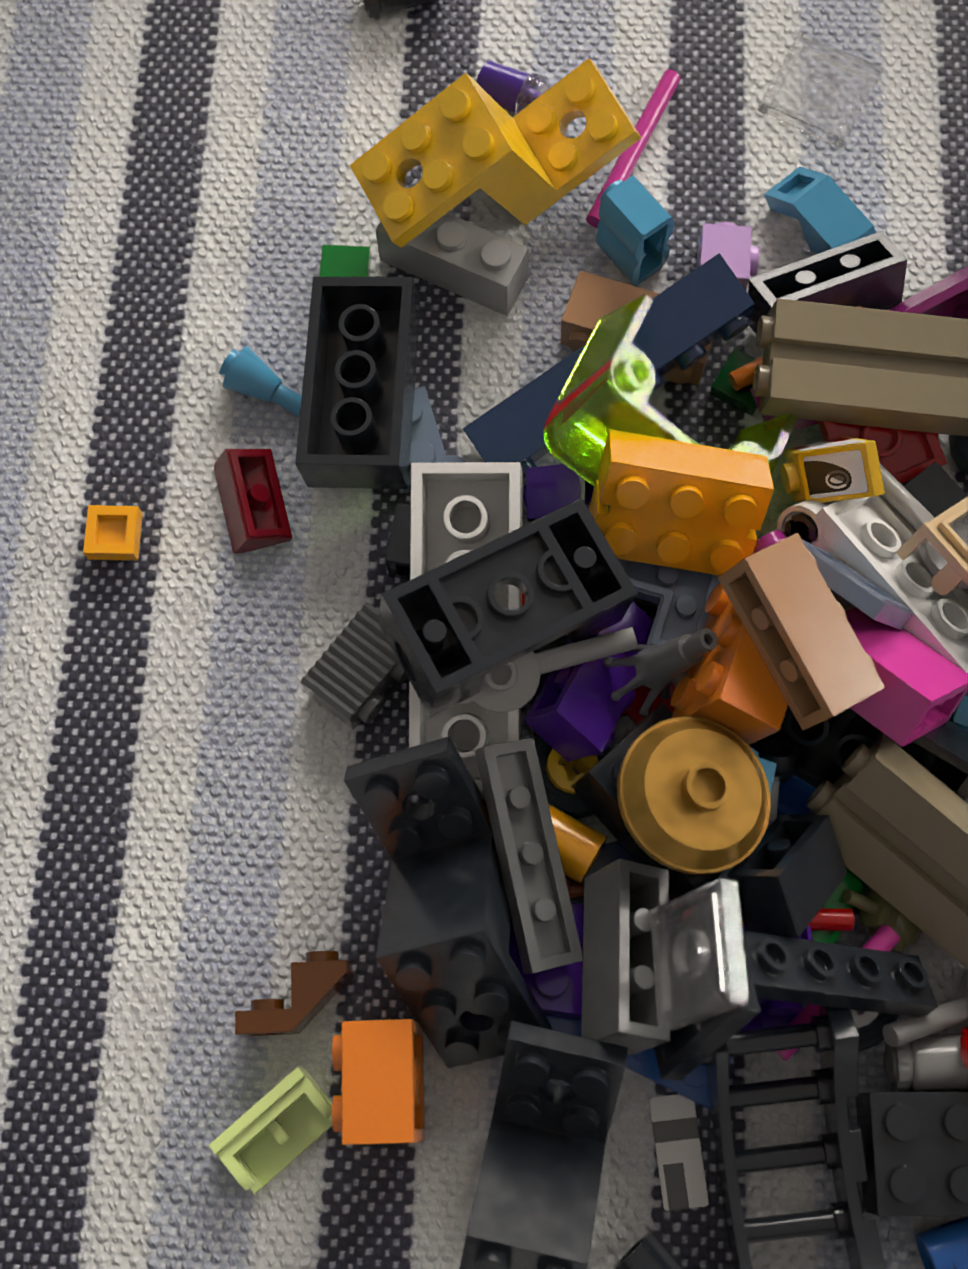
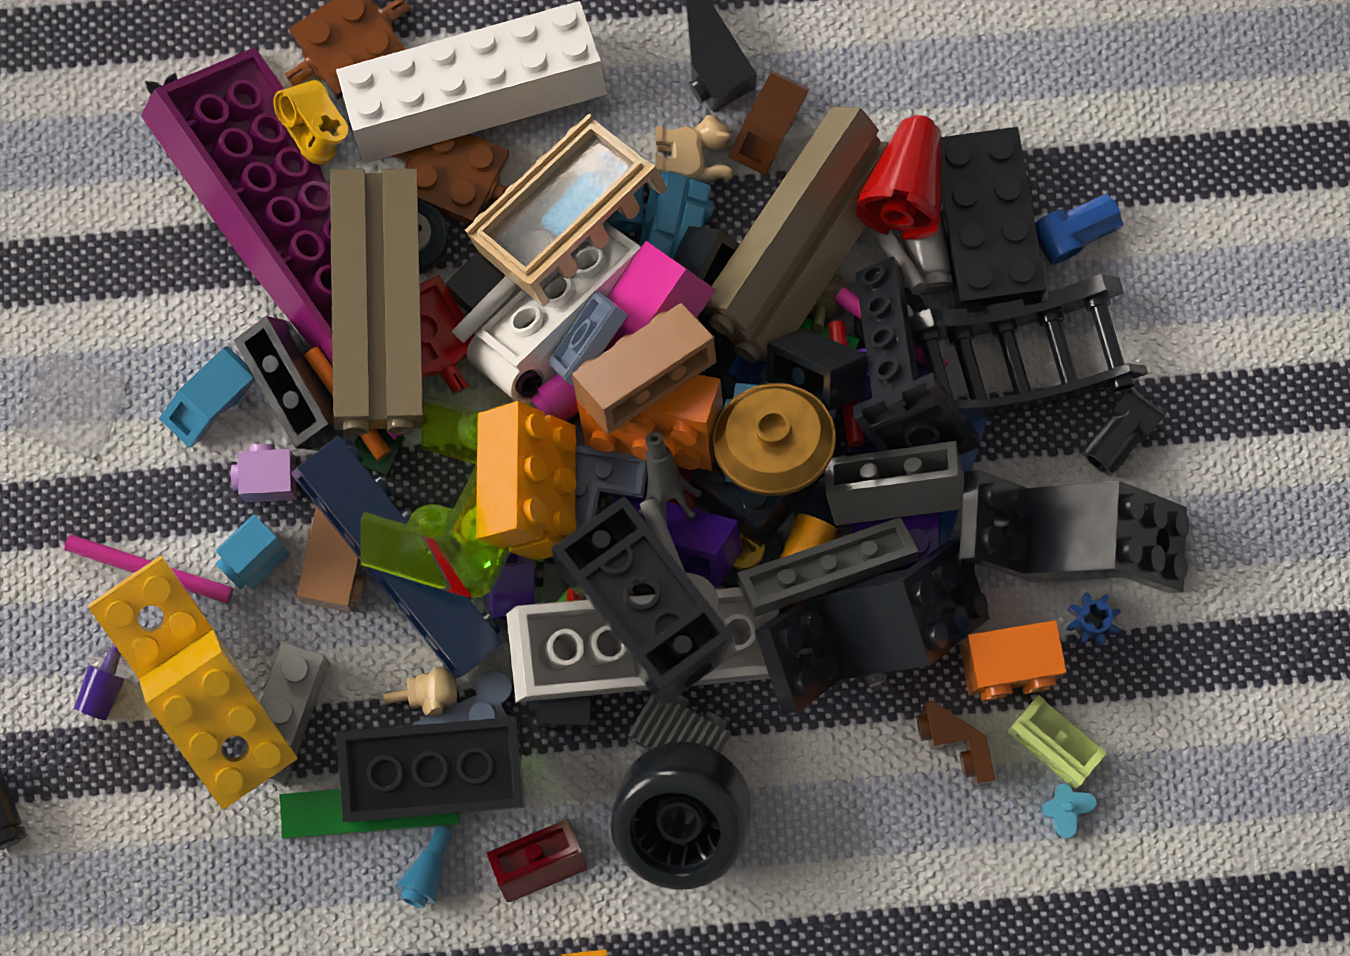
camera: 100 degrees left, 5 degrees up
(194, 1129) = (1066, 808): none -> medium azure piece
(257, 643) = (678, 844): none -> black wheel
(414, 1219) = (1097, 608): none -> blue gear
(456, 404) = (428, 691): none -> tan piece
(678, 1152) = (1021, 439): white sticker -> none
(699, 955) = (895, 423): clear tile -> none
(833, 470) = (472, 363): slope -> none

